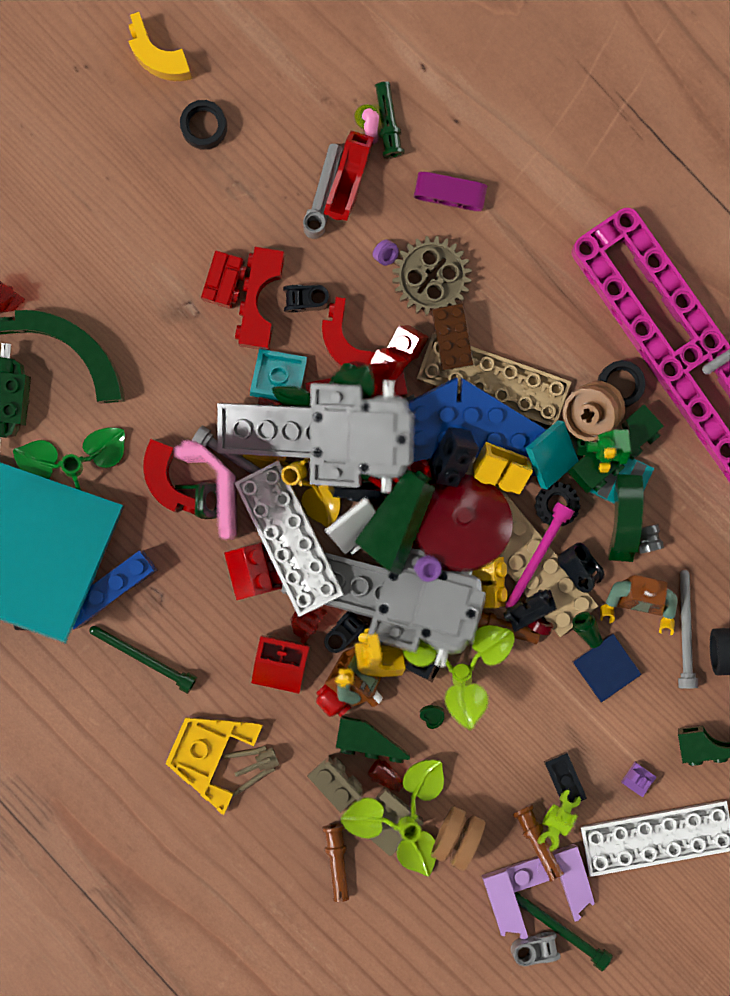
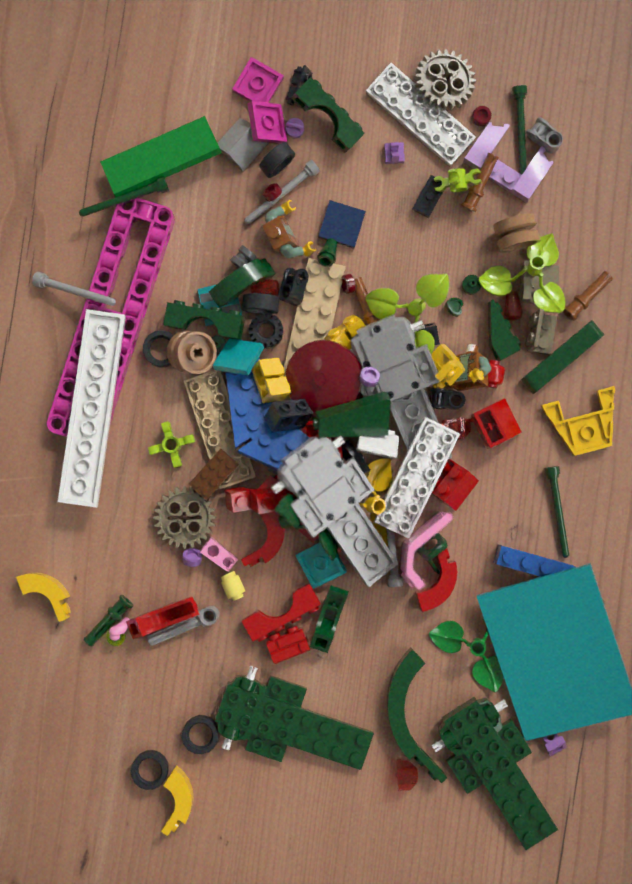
camera: 130 degrees left, 0 degrees up
(159, 209) = (273, 719): none -> dark green piece
(202, 30) = (149, 785): none -> black tyre
(217, 339) = (328, 619): none -> dark green arch
(265, 760) = (562, 385): dark tan plant -> none
(294, 785) = (562, 357): none -> dark green beam
(304, 298) = (260, 586): black piece -> none
(325, 270) = (232, 586): none -> light yellow brick
(367, 281) = (218, 554): none -> bright pink leg
(441, 745) = (468, 288): none -> dark green tile
(450, 191) = (122, 547): magenta beam -> none
(468, 87) = (50, 588): none -> yellow arch
(527, 324) = (176, 461): none -> lime pin
(535, 608) = (344, 295): black hinge -> none
(560, 515) = (271, 322): dark pink piece -> none
(589, 519) = (260, 303): none -> black tyre
(600, 538) = (266, 287): none -> clear red cone
(607, 900) = (481, 115): none -> dark red tile
(611, 447) = (206, 323): green piece -> none
(614, 266) = (91, 408): none -> white plate
(685, 872) = (460, 77): none -> dark tan gear
(694, 621) = (272, 192): none -> dark red tile

